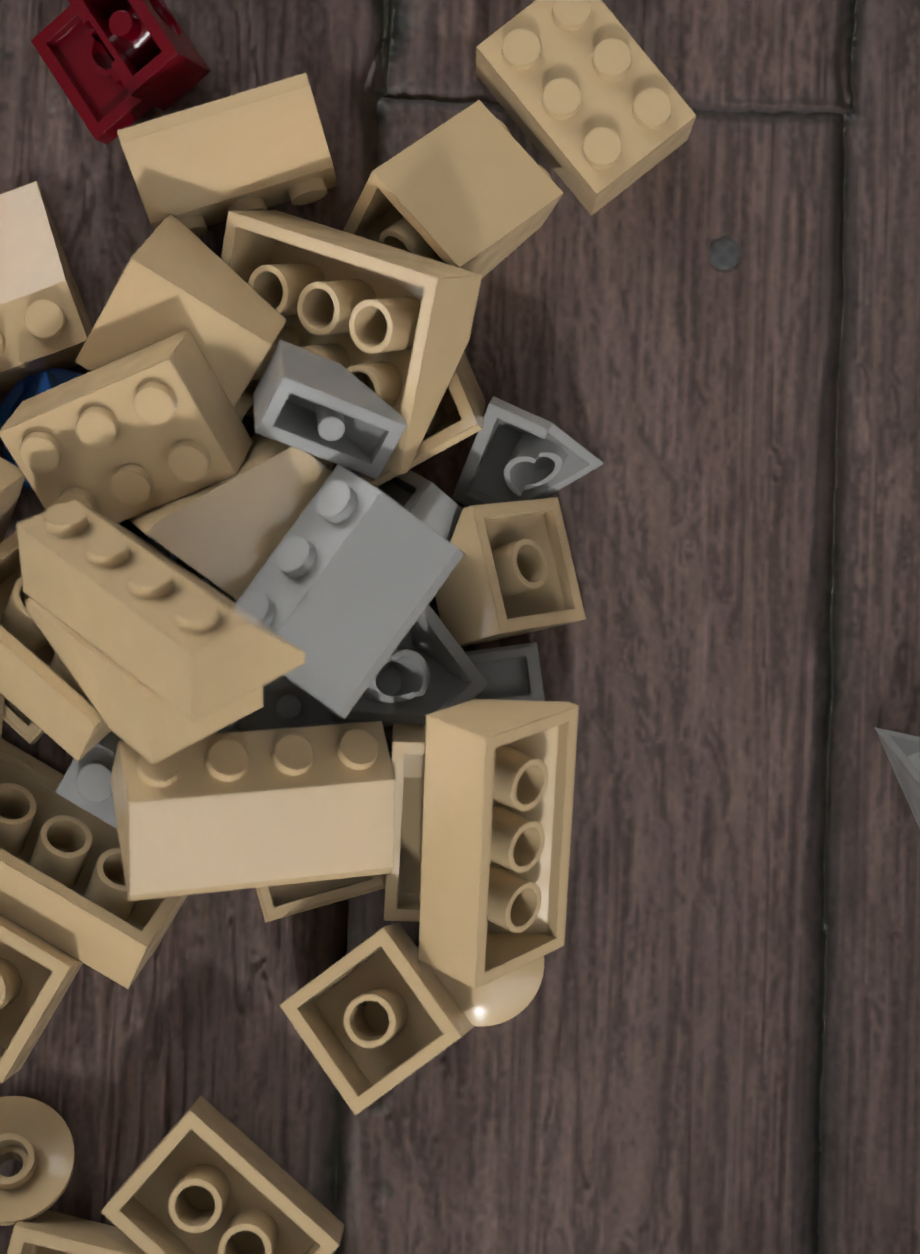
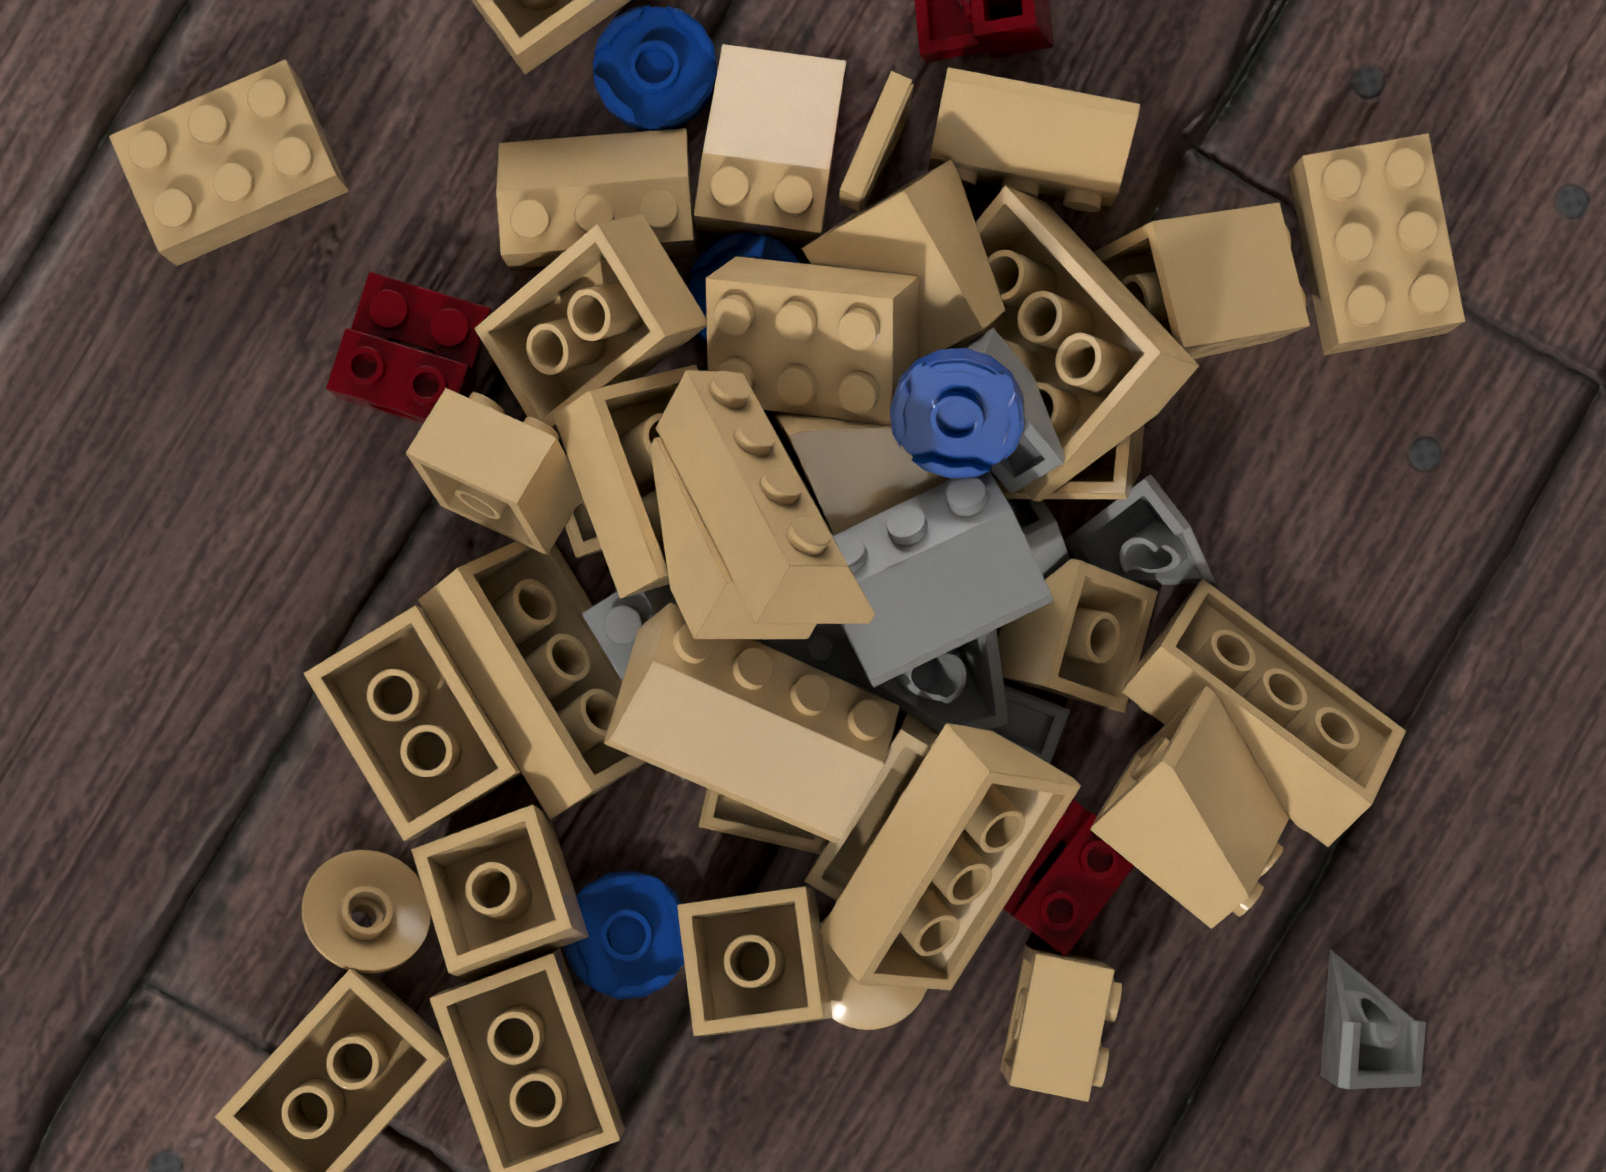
camera: 30 degrees right, 0 degrees up
(95, 231) = (877, 142): none -> tan tile
(116, 1080) = (499, 893): none -> tan brick
(250, 1053) = (631, 933): none -> blue tile
(285, 430) = (957, 412): none -> blue tile
(622, 791) = (1073, 886): none -> dark red brick
(674, 925) = (1059, 1023): none -> tan brick
(695, 673) = (1197, 813): none -> tan slope
(709, 553) = (1303, 726): none -> tan slope

